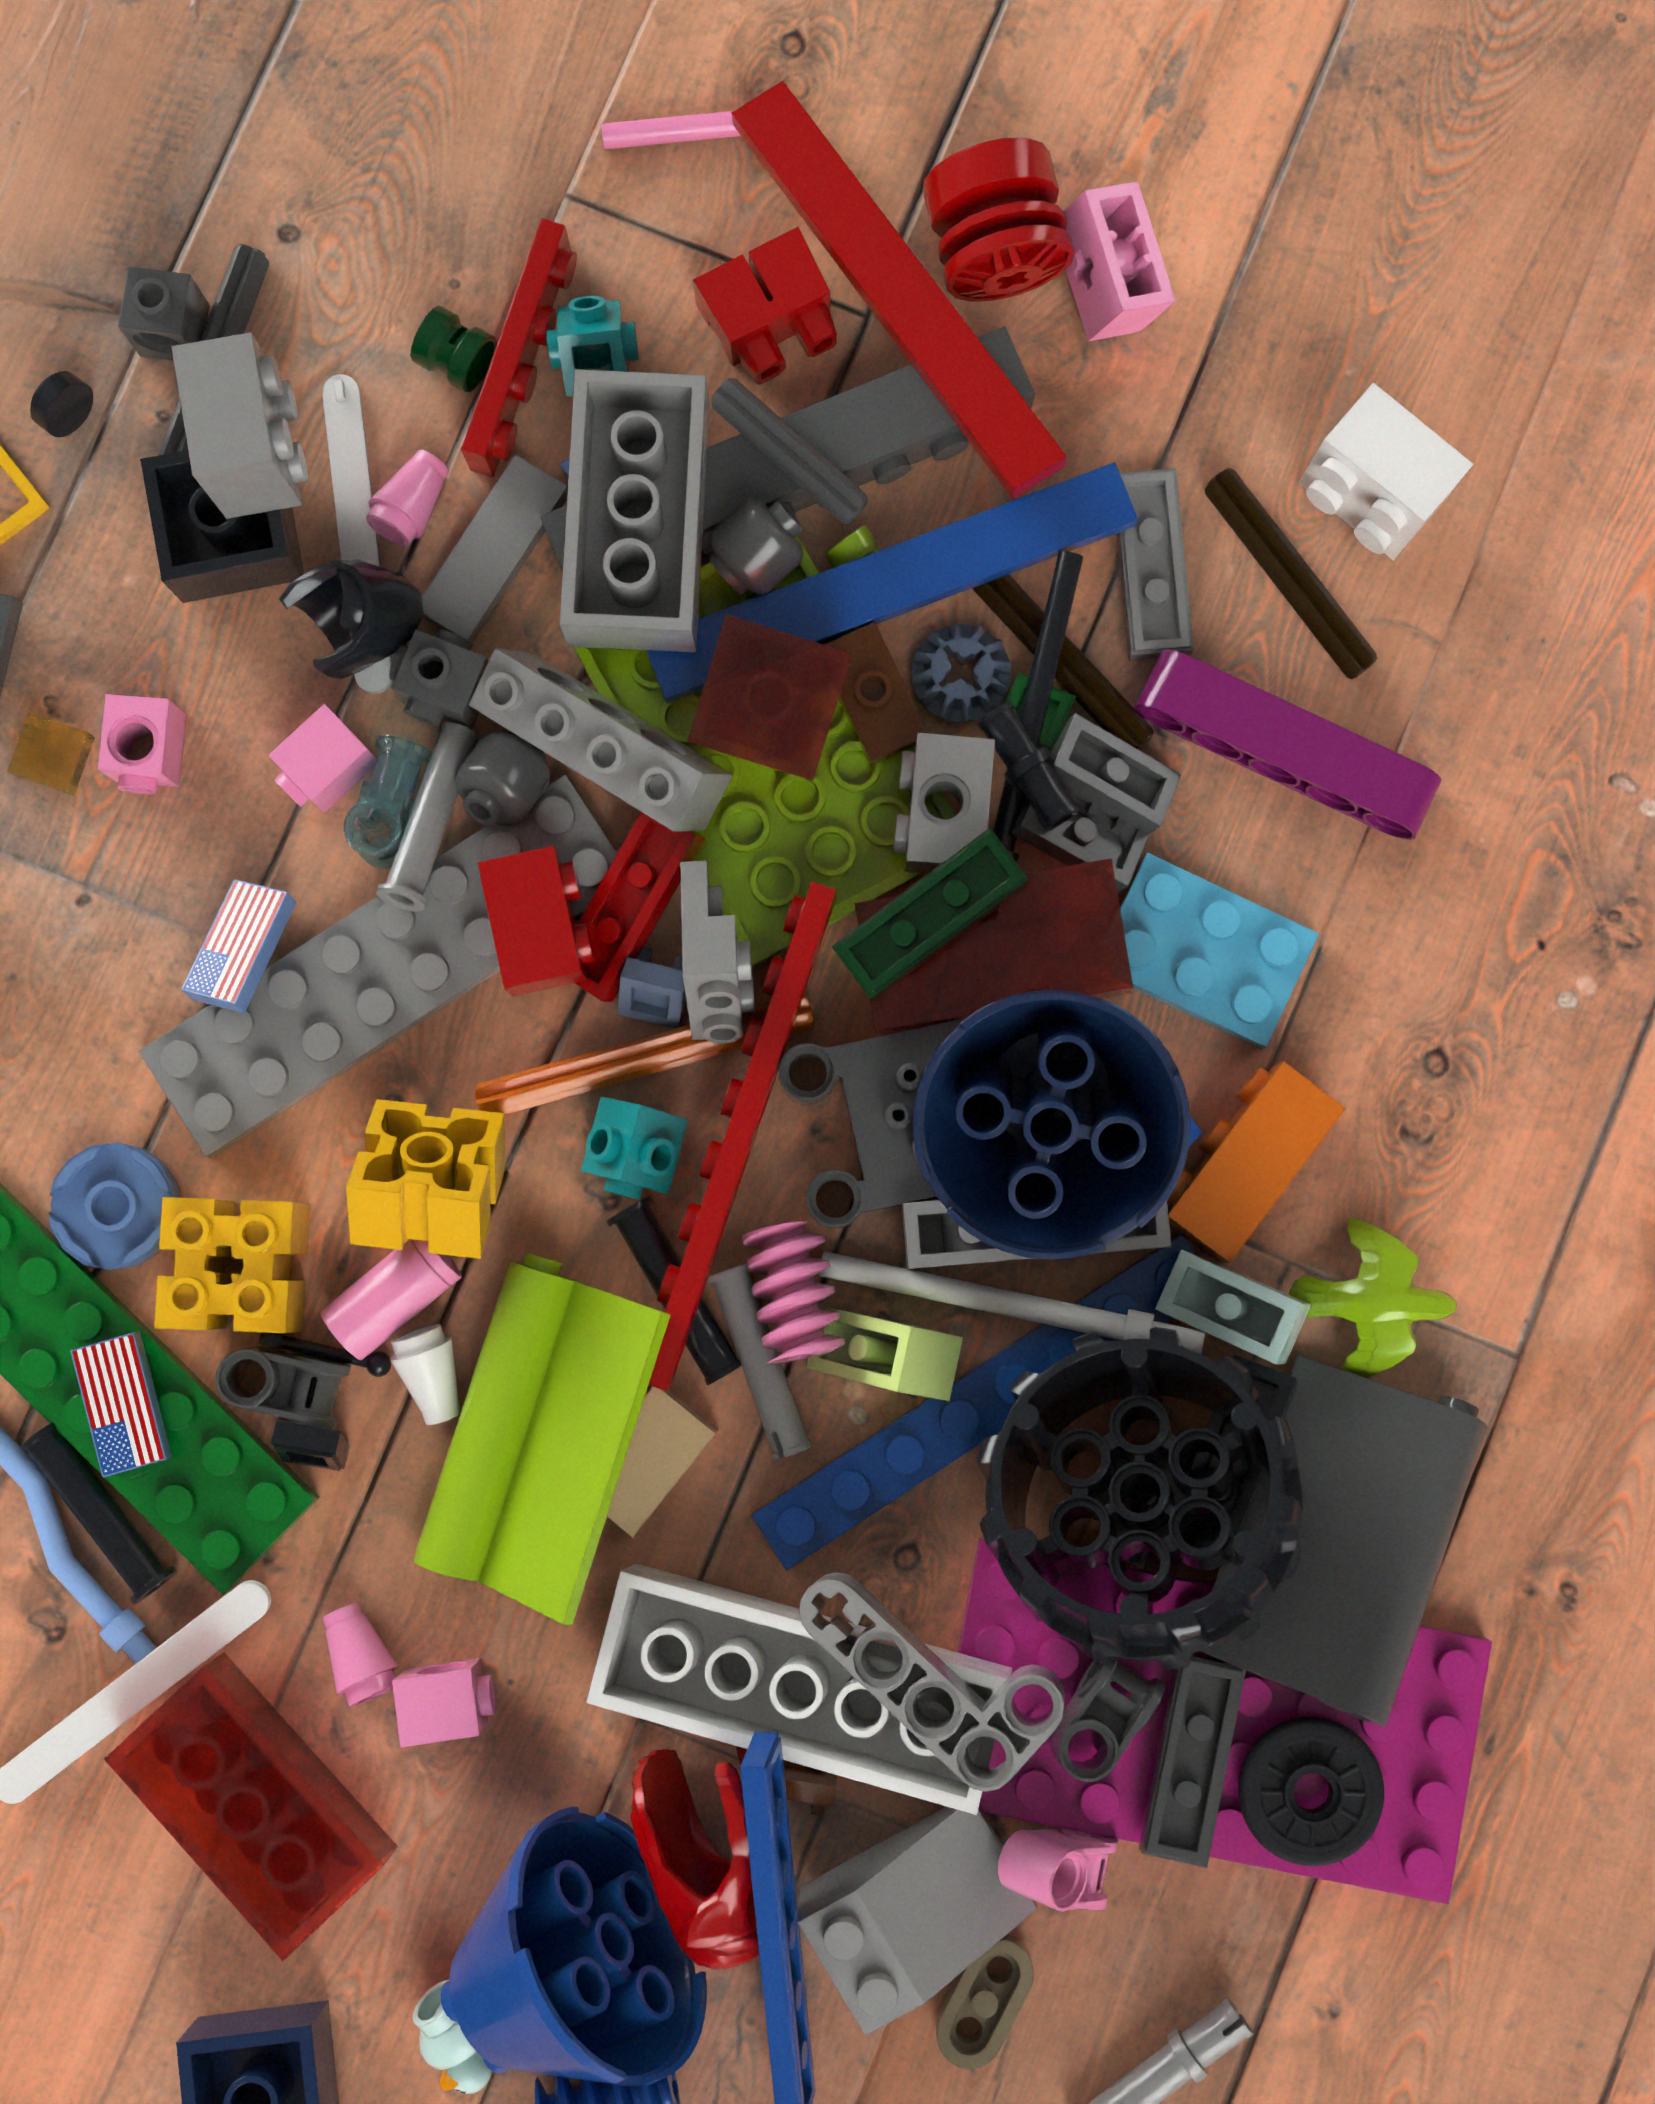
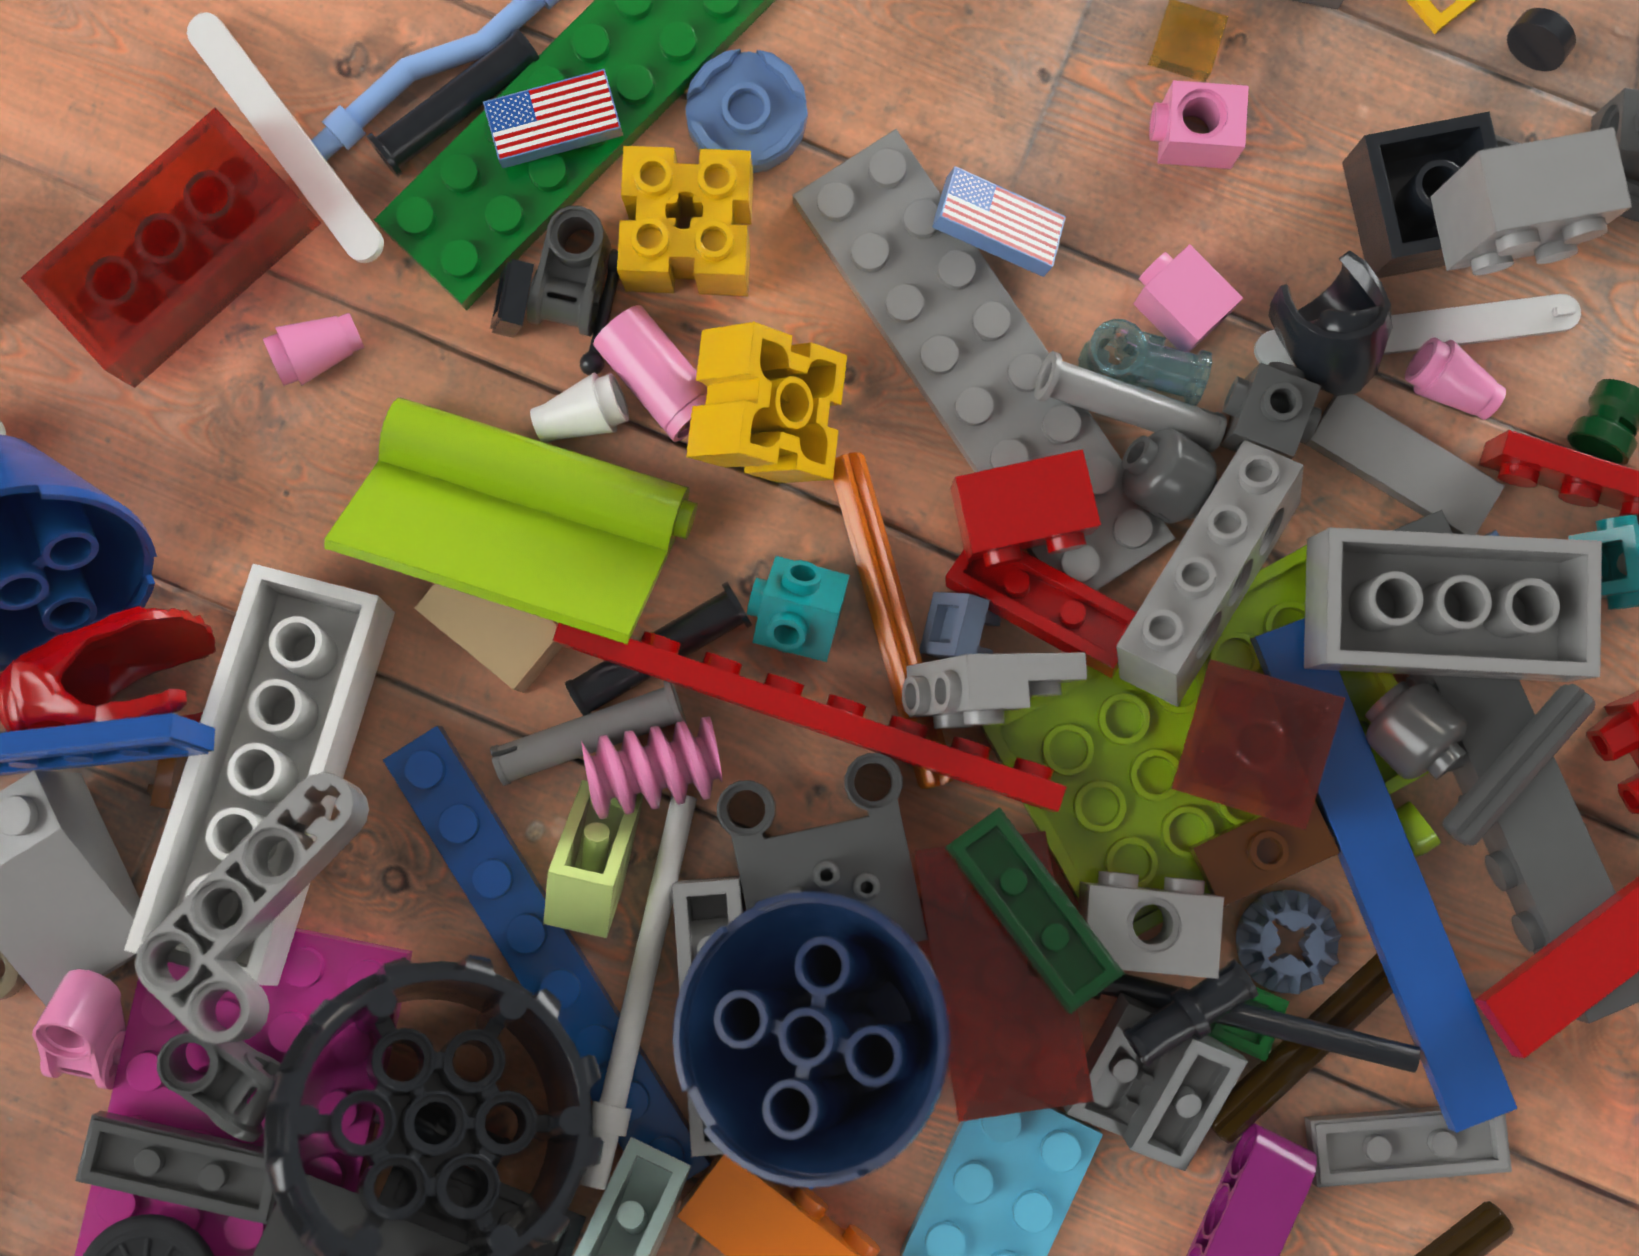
camera: 90 degrees right, 0 degrees up
(443, 1702) = (265, 427): bright pink brick -> none

